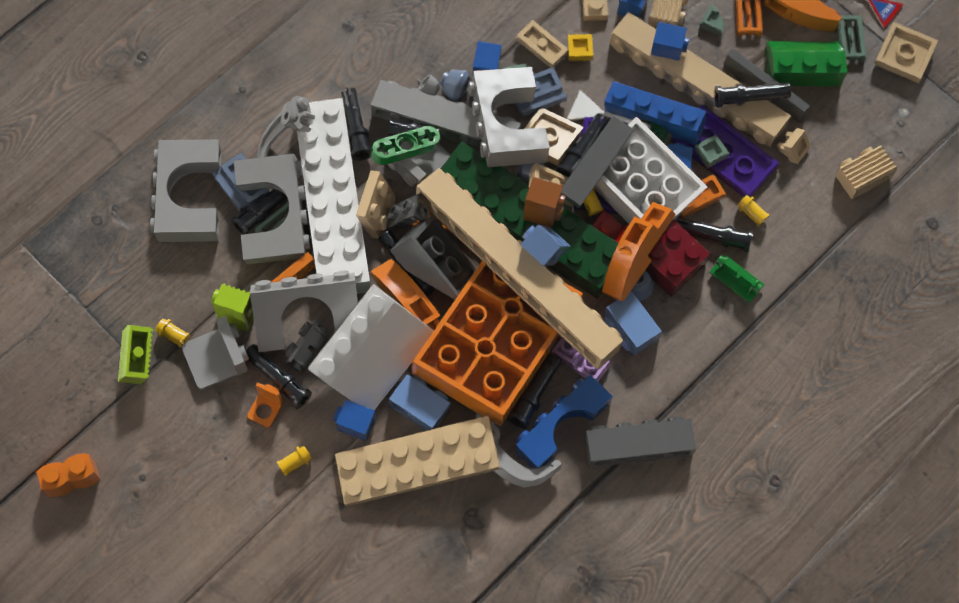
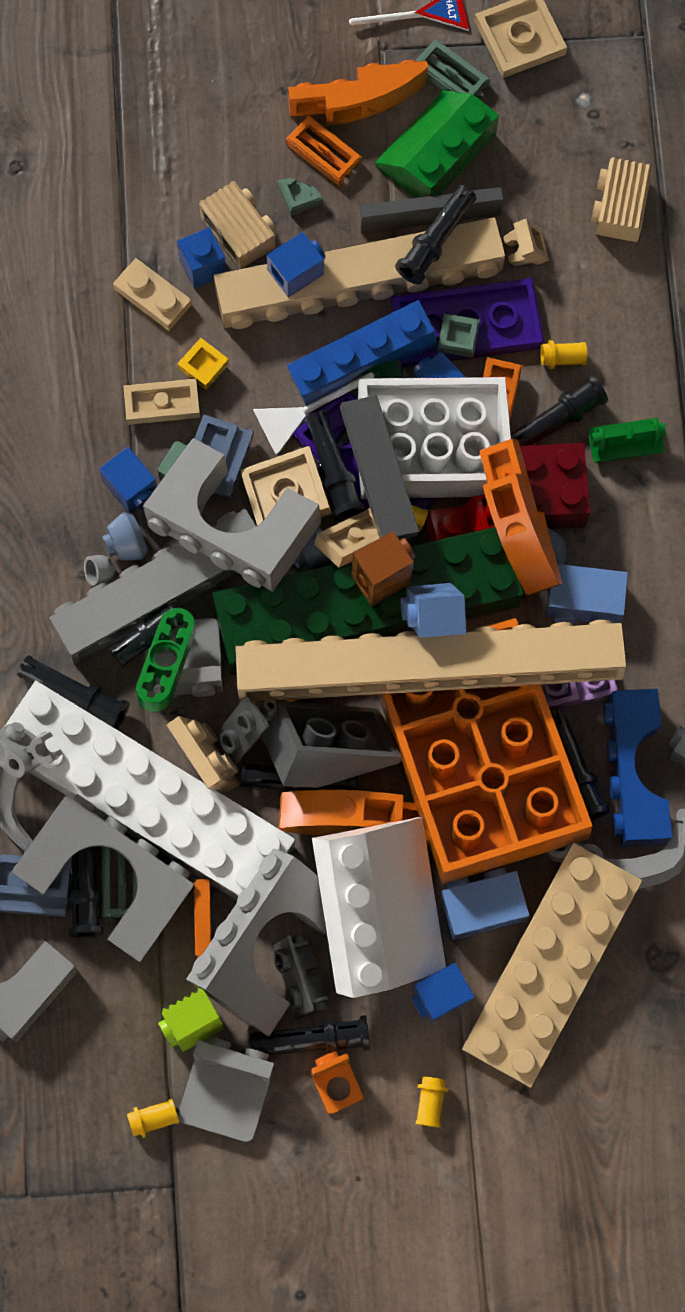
camera: 50 degrees left, 5 degrees up
(135, 354) = (149, 1184): lime brick -> none

